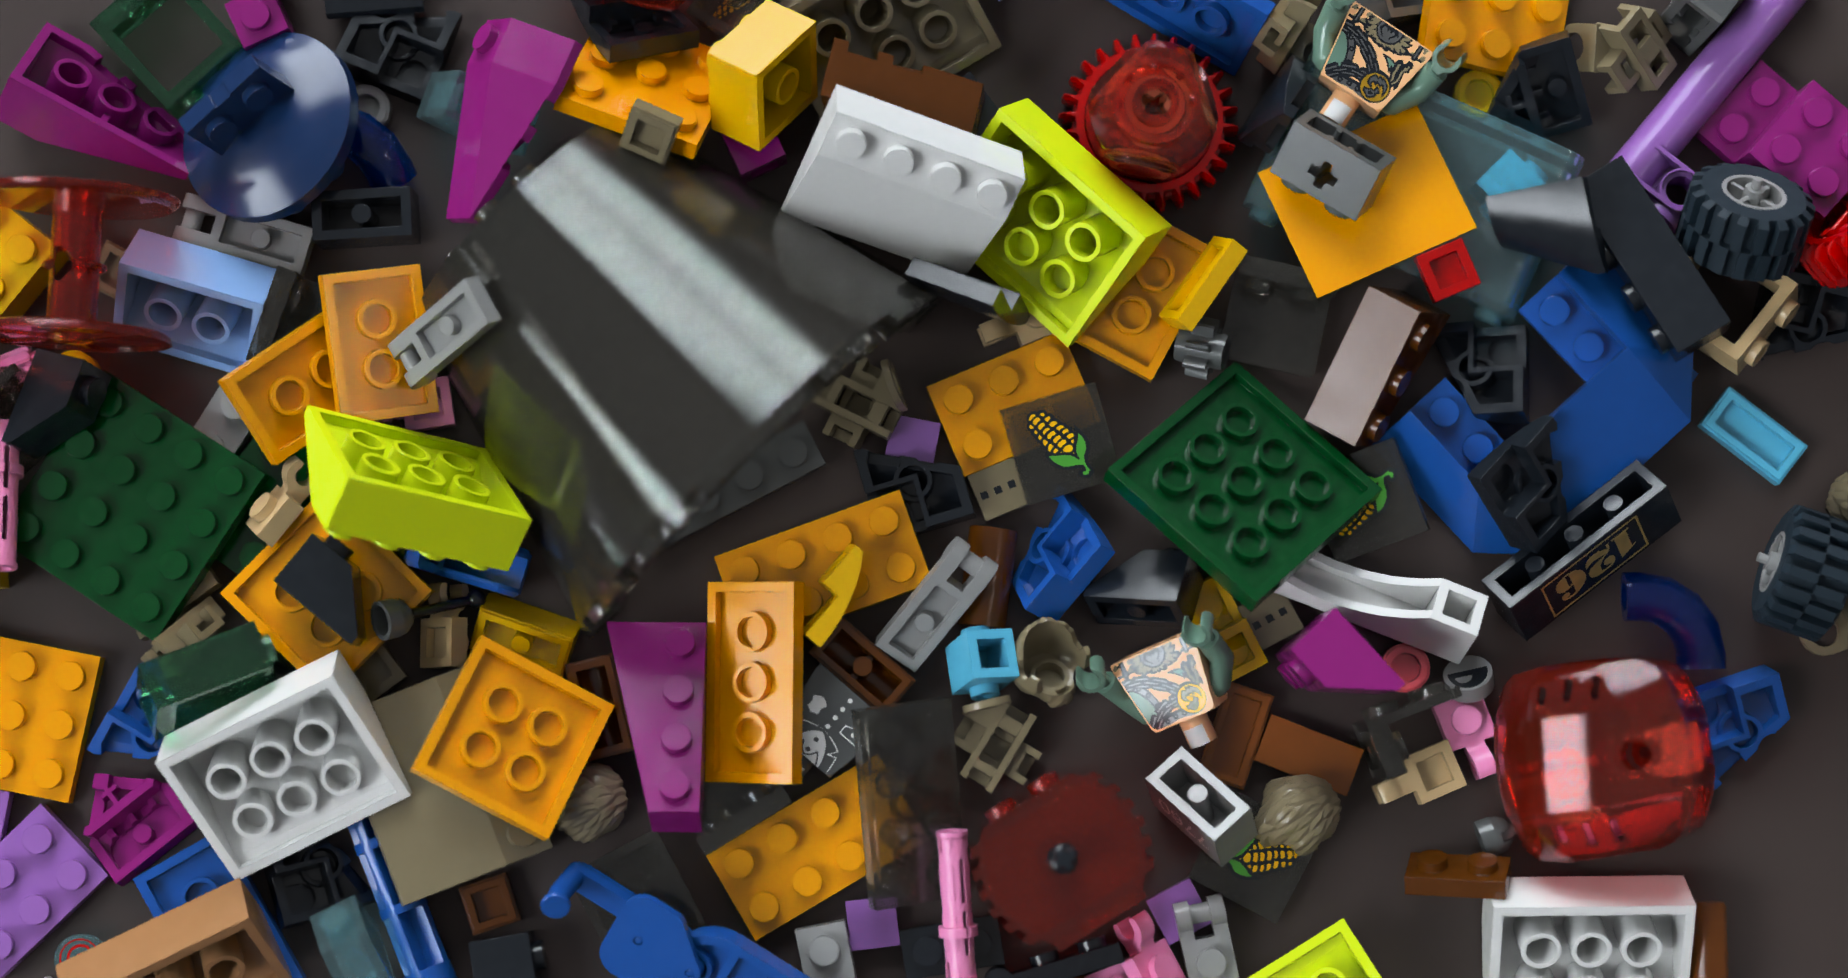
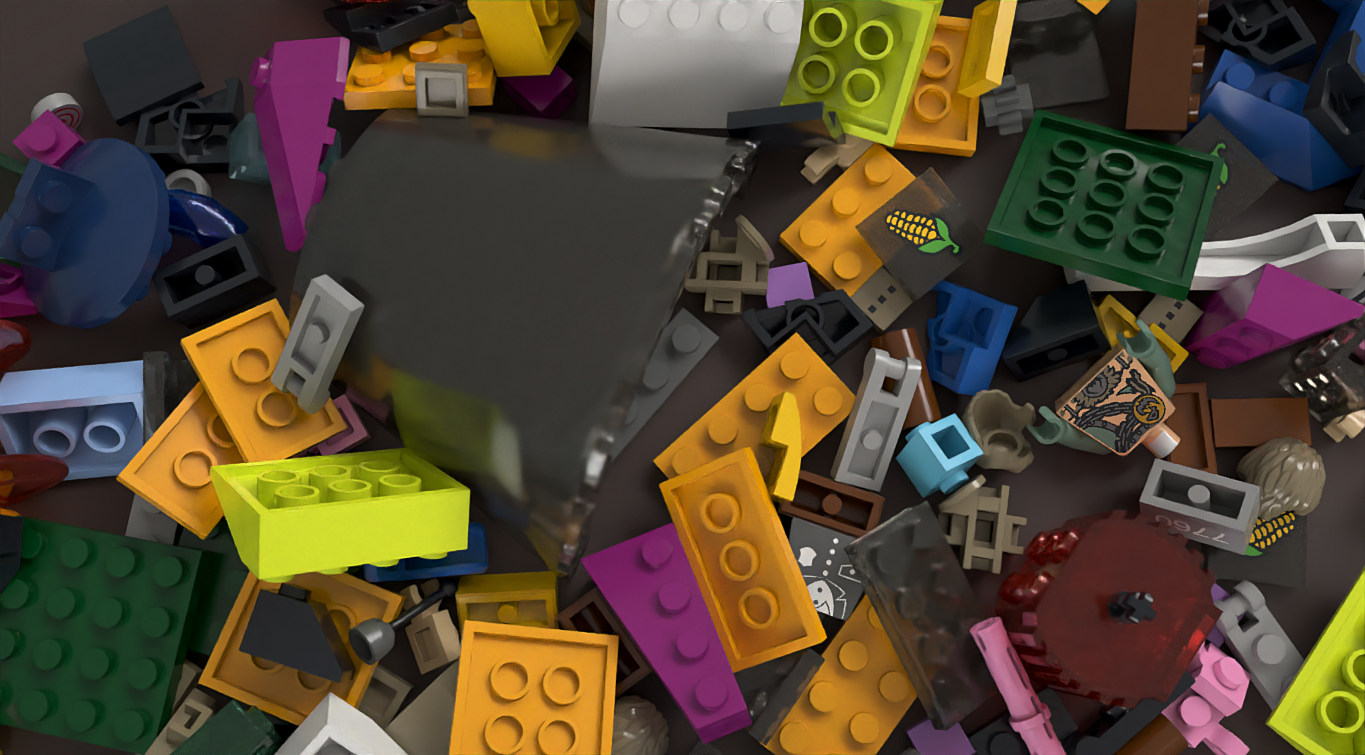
camera: 20 degrees left, 5 degrees down
(264, 243) = (114, 342): light grey plate -> none
(278, 509) = (224, 583): tan plate -> none

